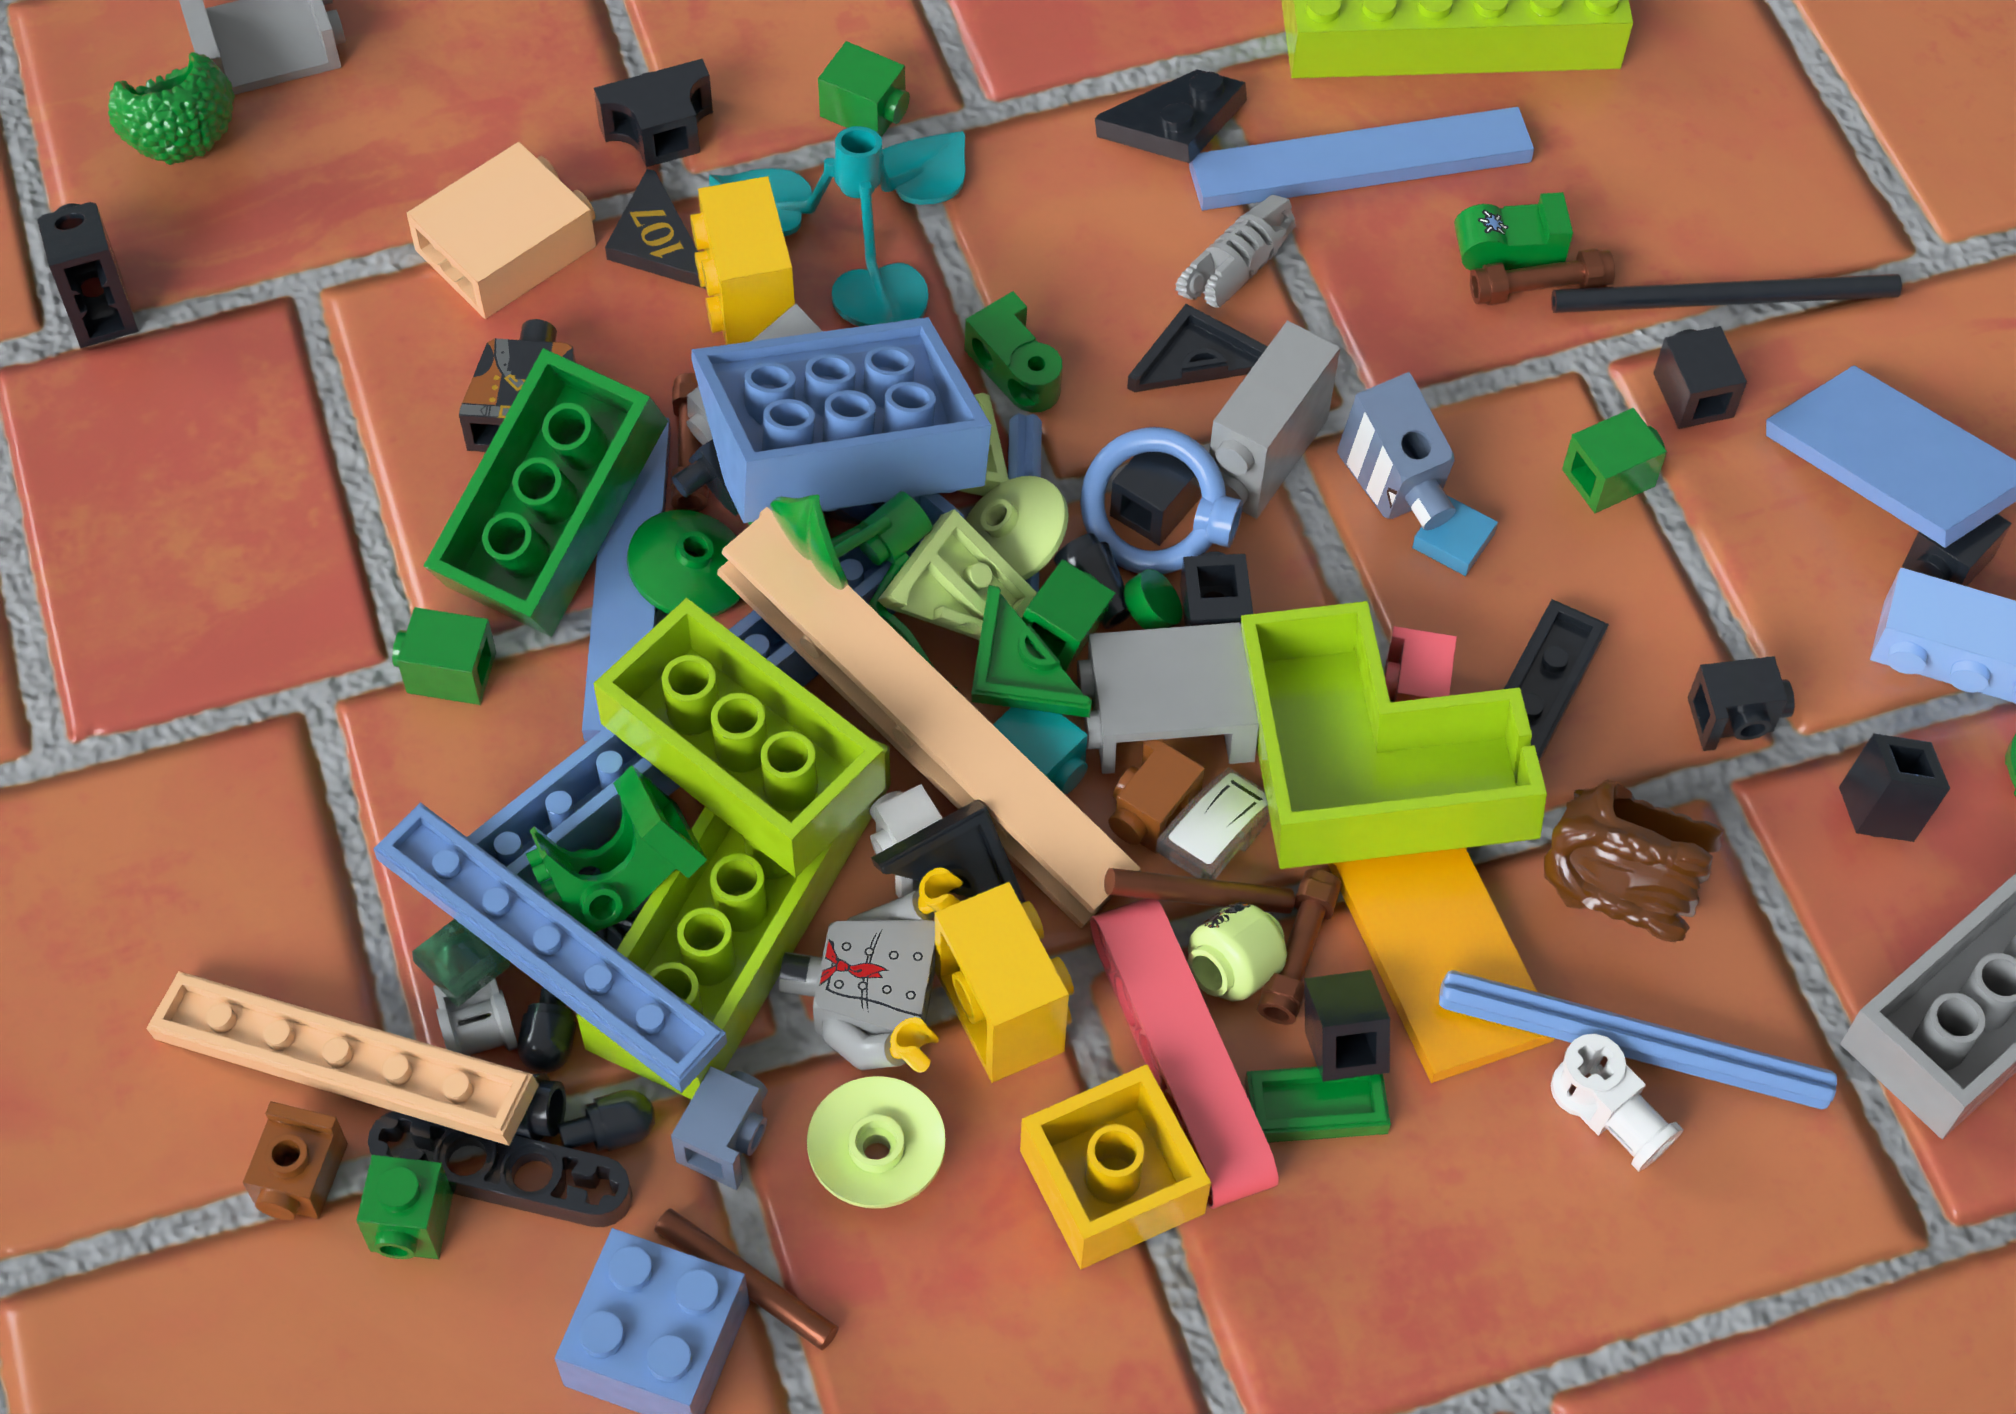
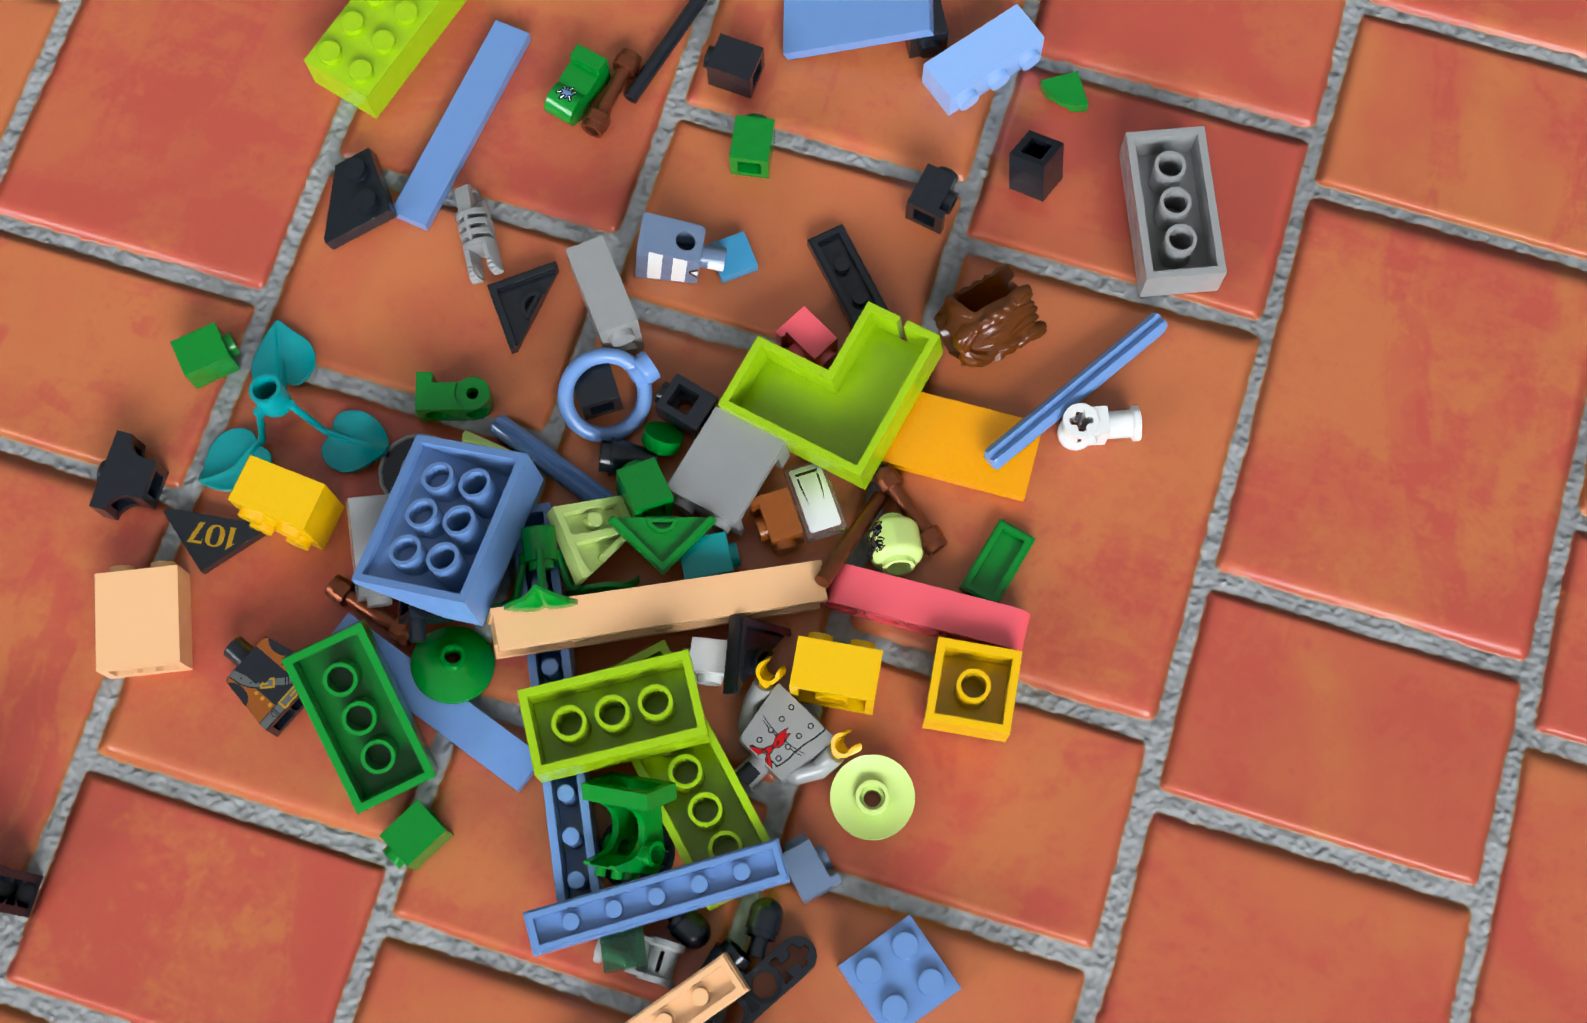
camera: 50 degrees left, 15 degrees up
(760, 1288) = (895, 912): copper bar -> none
(1022, 522) = (577, 468): yellowish green dish -> none
(1347, 1025) = (974, 521): black brick -> none

